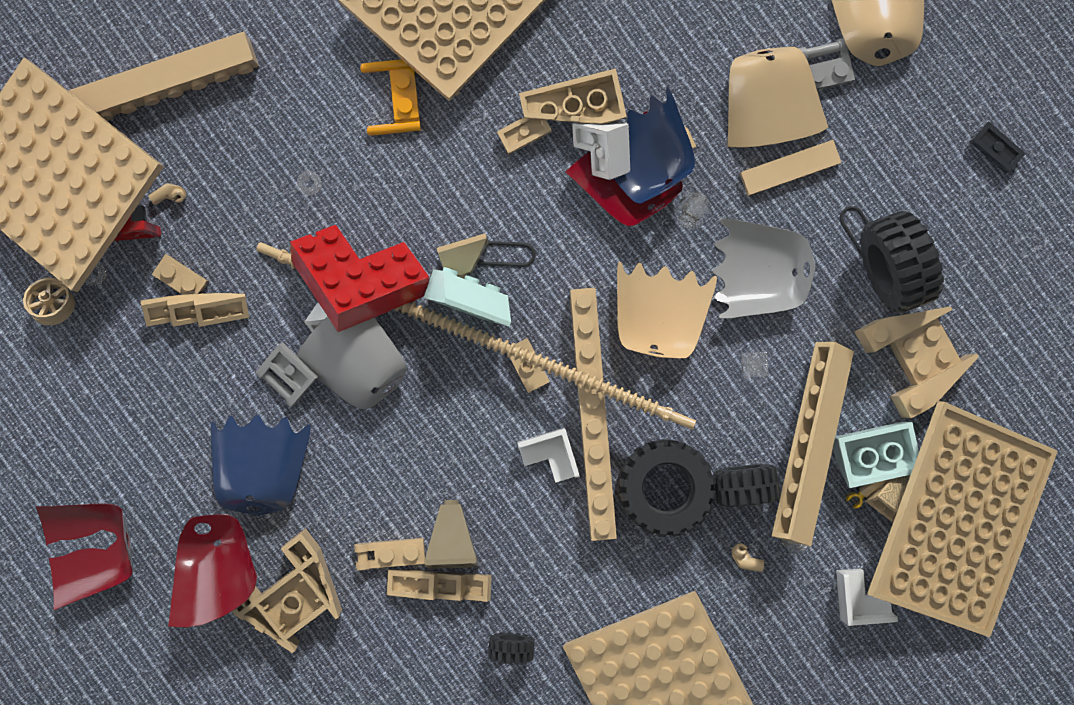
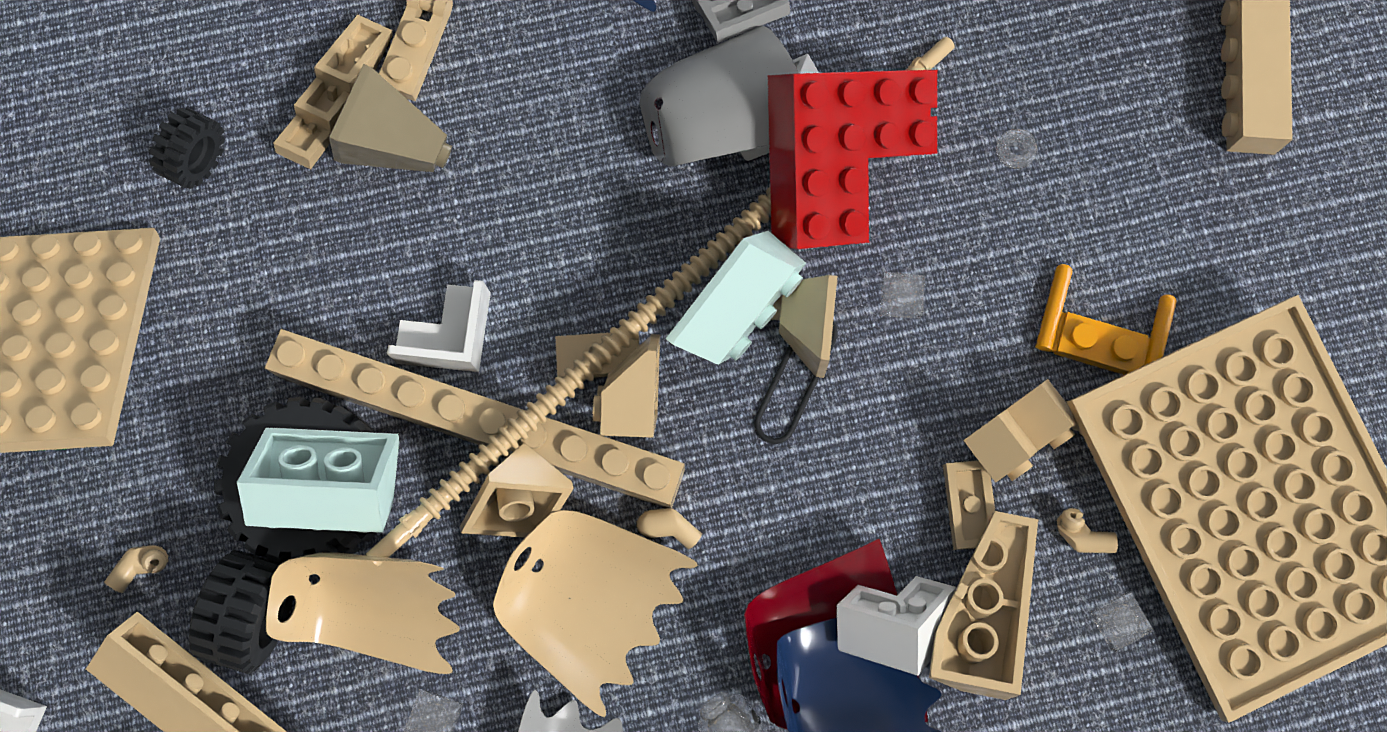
camera: 120 degrees right, 10 degrees down
(422, 213) = (902, 295): none -> clear plate
(468, 117) = (1022, 430): none -> tan brick
(516, 66) = (1081, 538): none -> tan arm
(545, 334) = (630, 395): none -> tan slope
(551, 31) = (1121, 621): none -> clear plate
(603, 287) = (668, 523): none -> tan arm
(625, 368) = (517, 496): none -> tan slope
(664, 472) = (320, 480): none -> light aqua slope
(717, 422) = (363, 607): none -> tan piece

